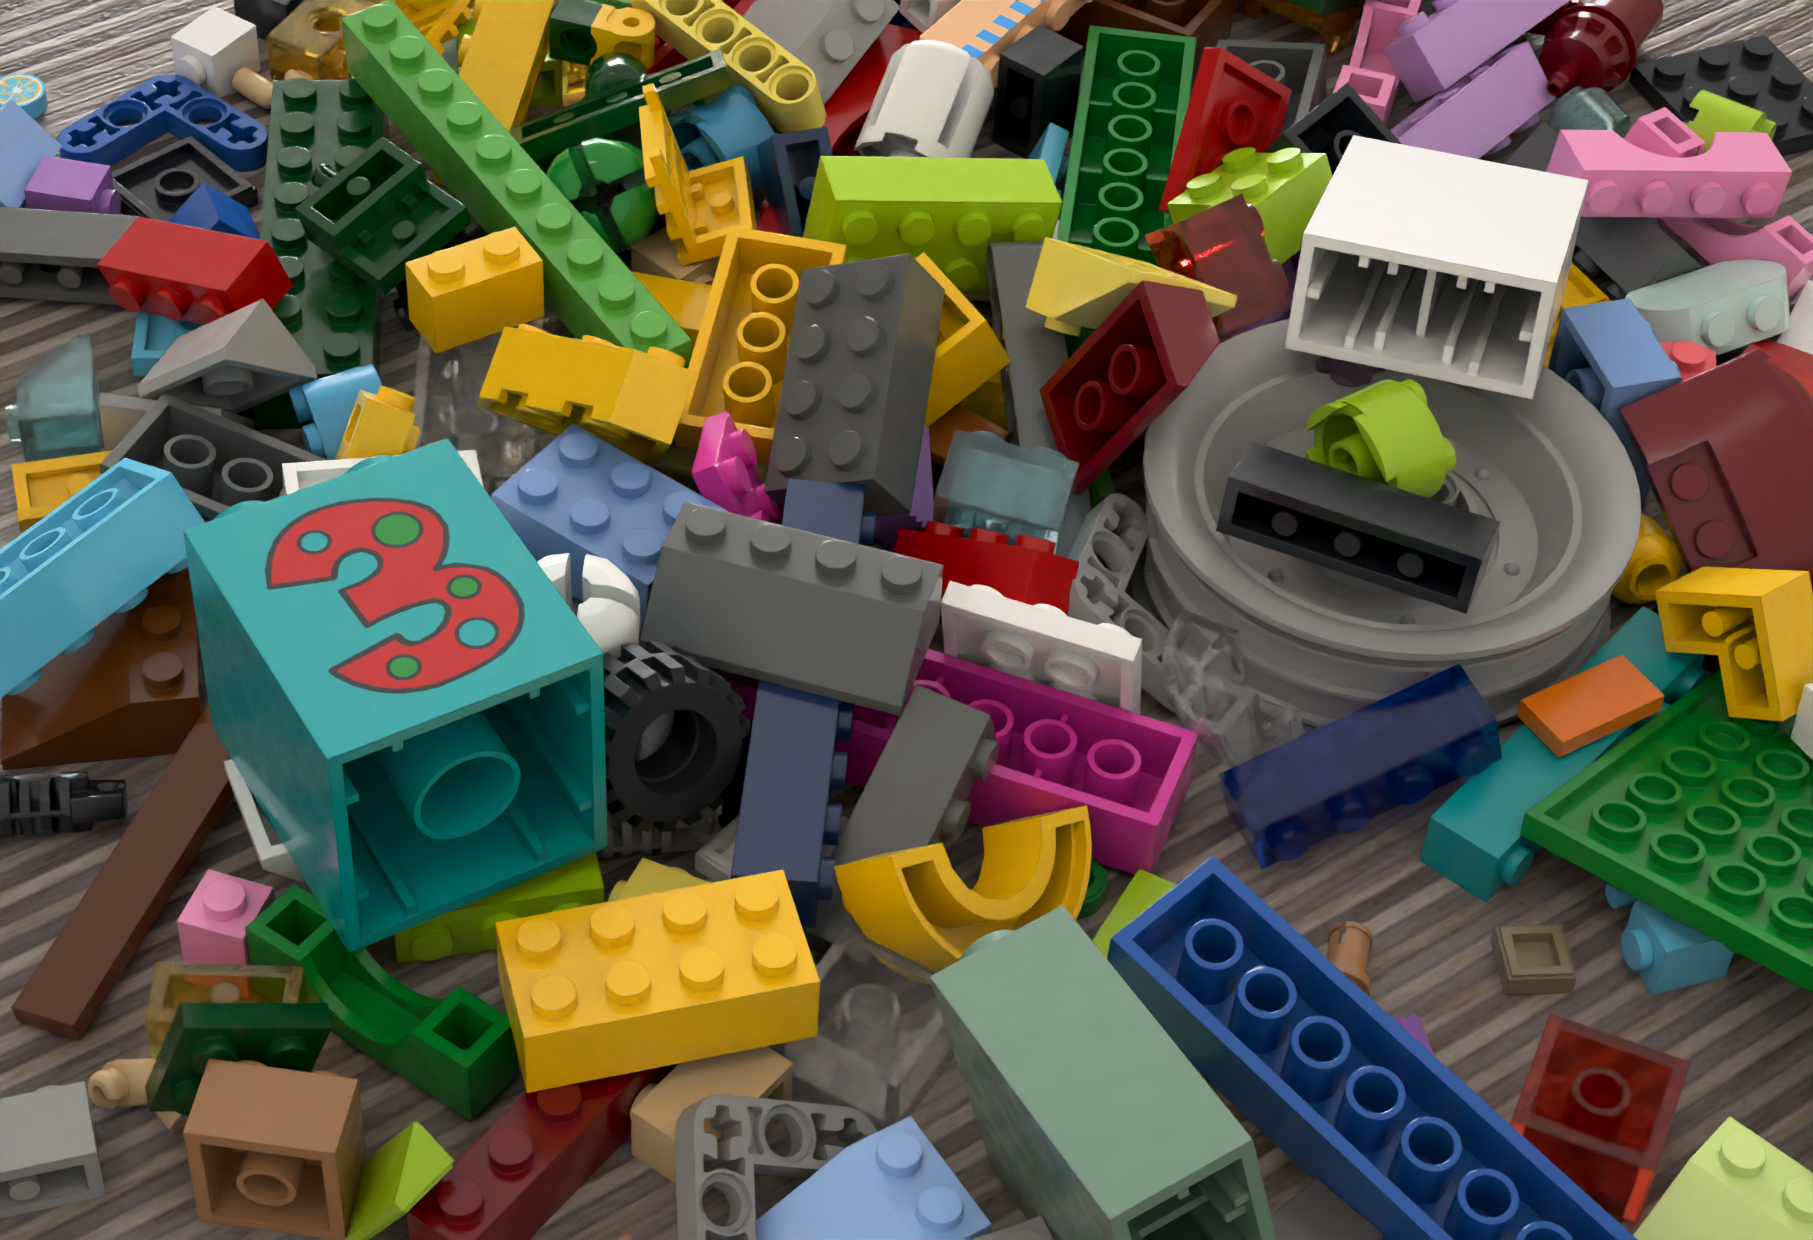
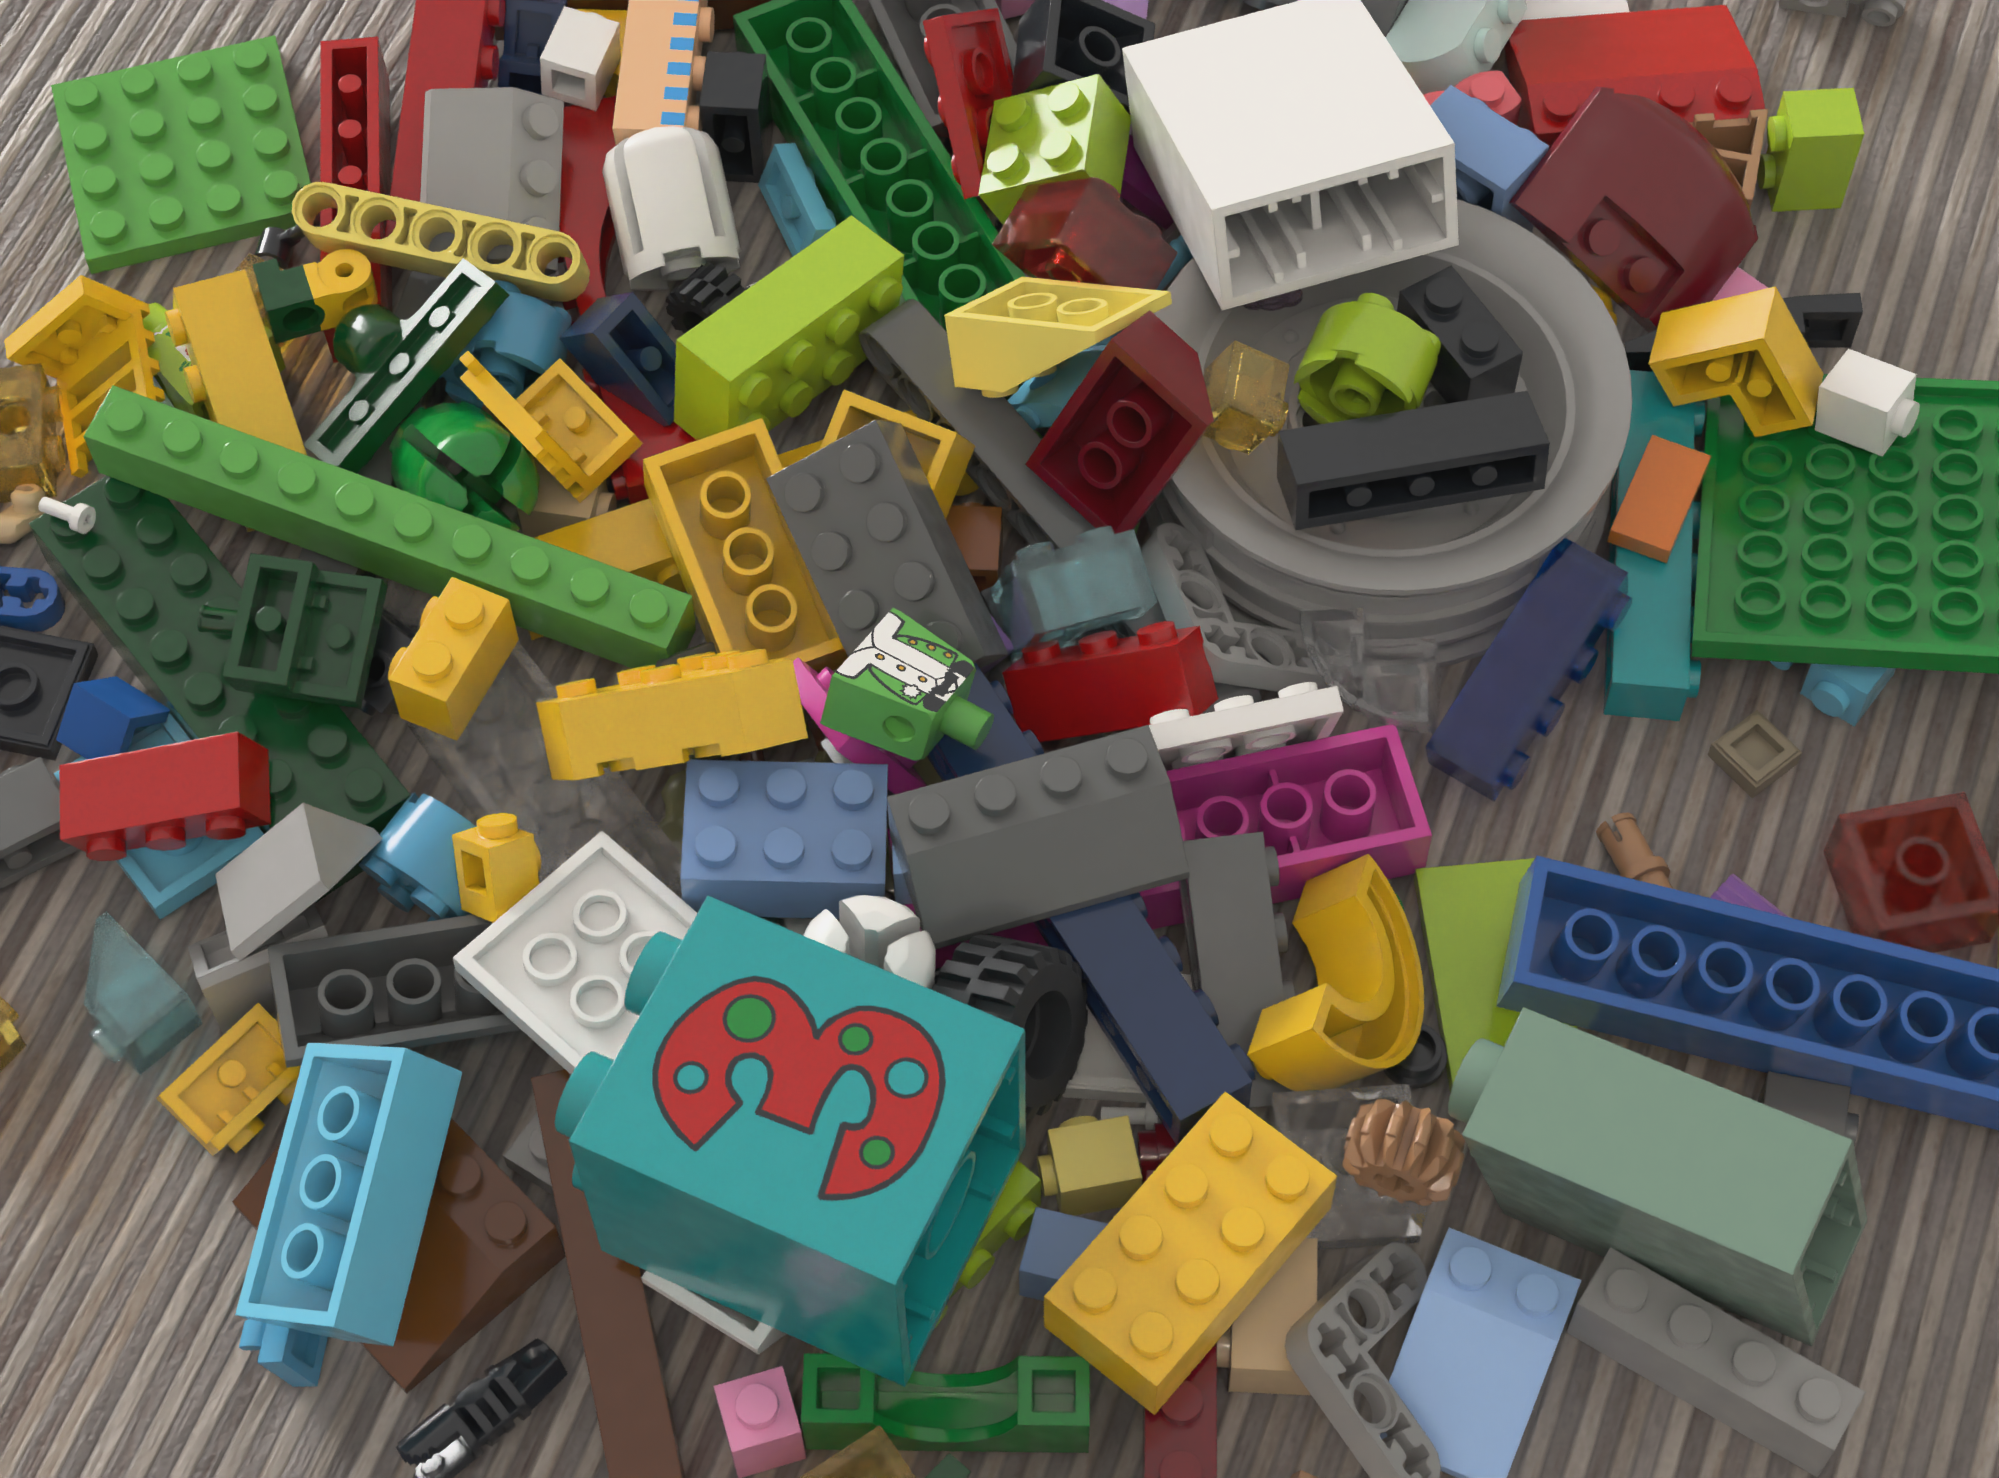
camera: 30 degrees left, 15 degrees up
(304, 84) = (80, 517): none -> white piece
(773, 452) = (905, 691): none -> bright green torso
(897, 1009) = (1403, 1152): none -> medium nougat gear
(1248, 410) = (1246, 397): none -> clear yellow brick
(1487, 471) = (1475, 350): none -> black brick

